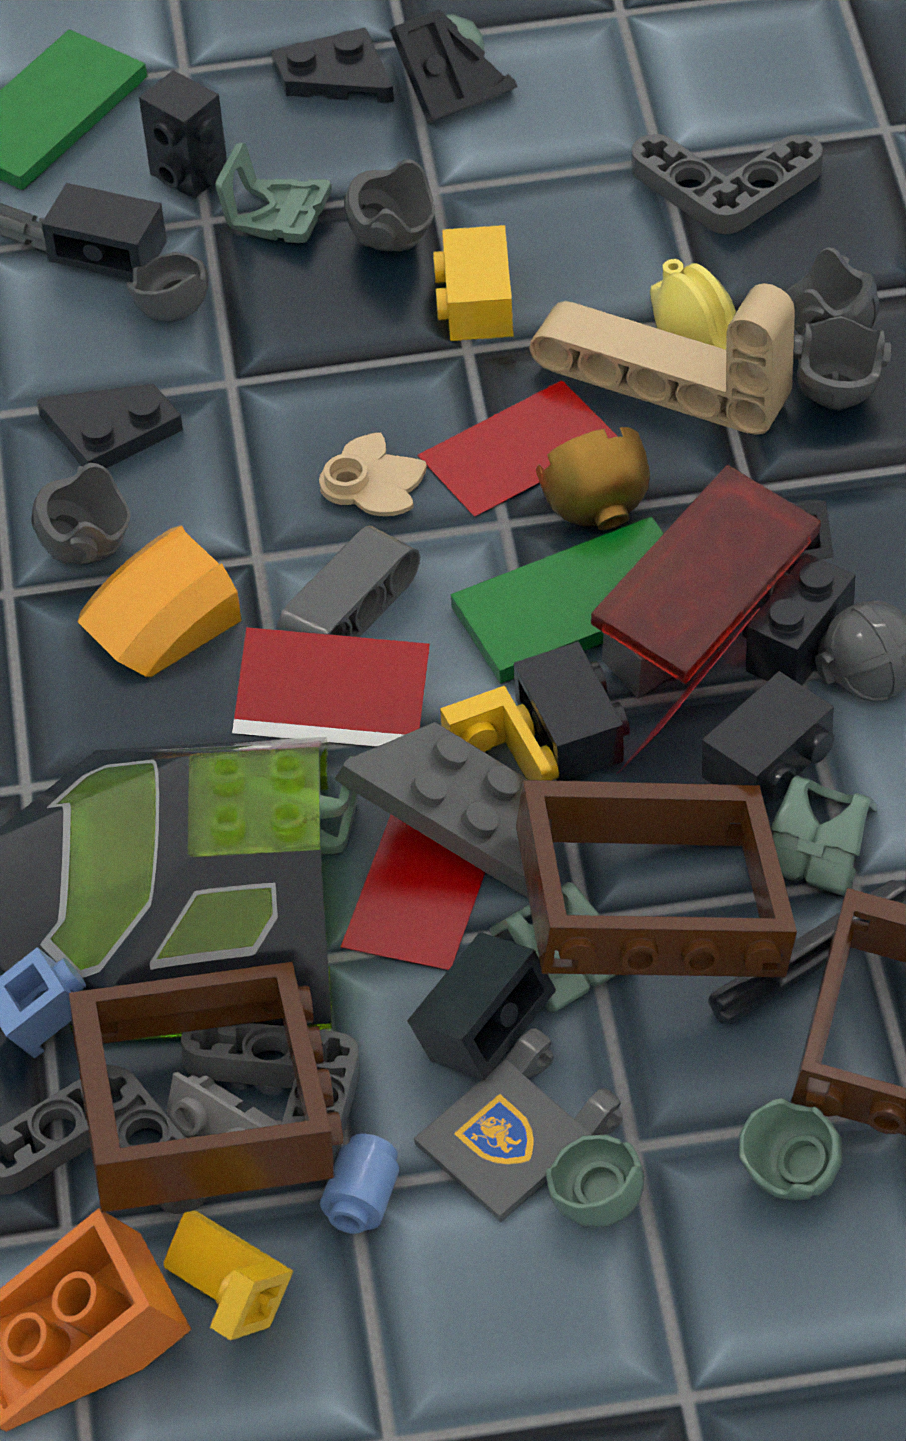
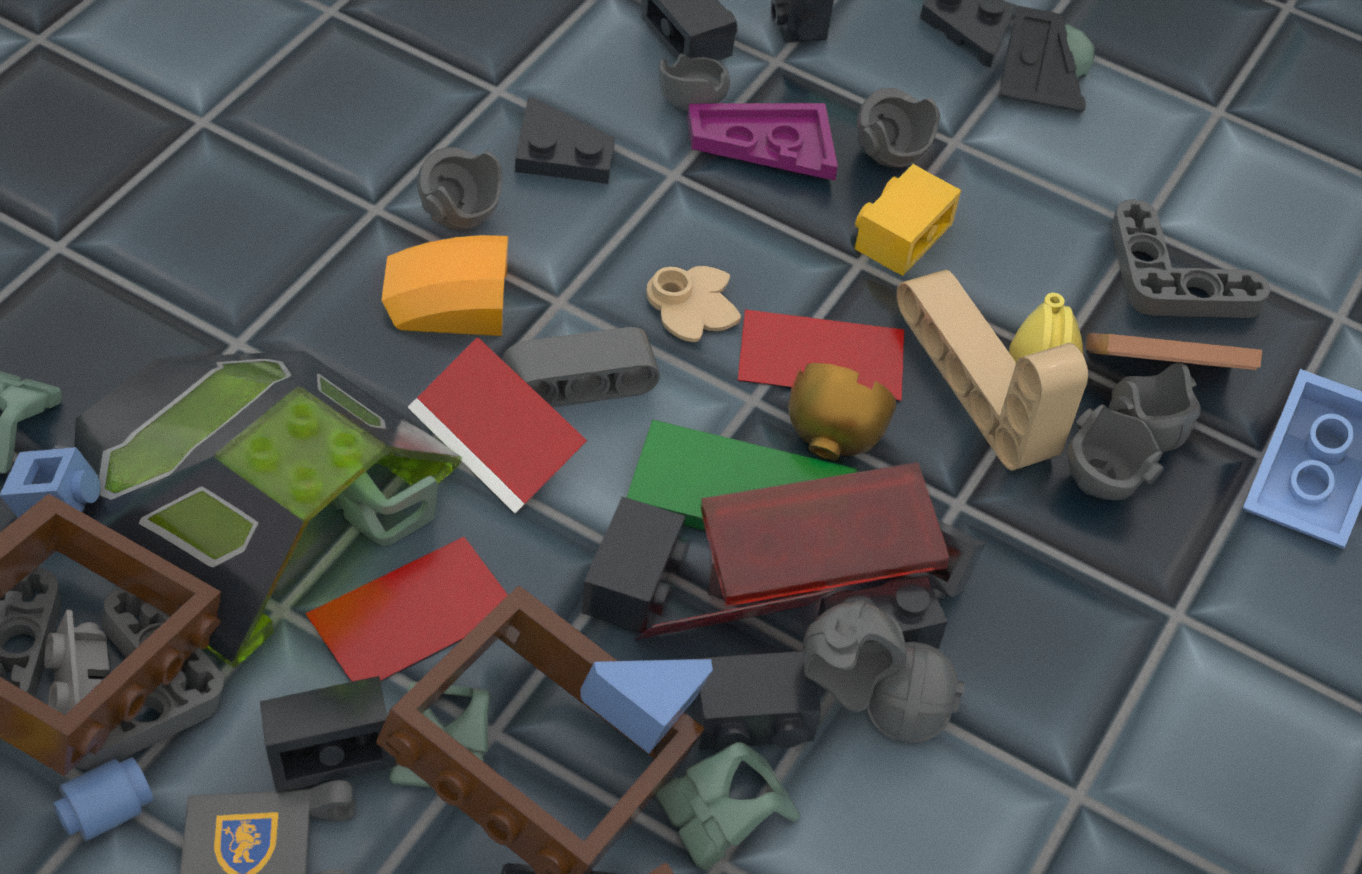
camera: 30 degrees right, 0 degrees up
(279, 290) = (767, 134): none -> magenta wing
(290, 207) = (842, 82): sand green piece -> none
(448, 795) = (477, 554): dark grey wing -> none
(494, 720) = (573, 528): yellow bracket -> none
(709, 788) = (644, 696): none -> medium blue slope
(803, 244) = (1174, 351): none -> nougat tile
(818, 641) = (852, 651): none -> dark grey cap

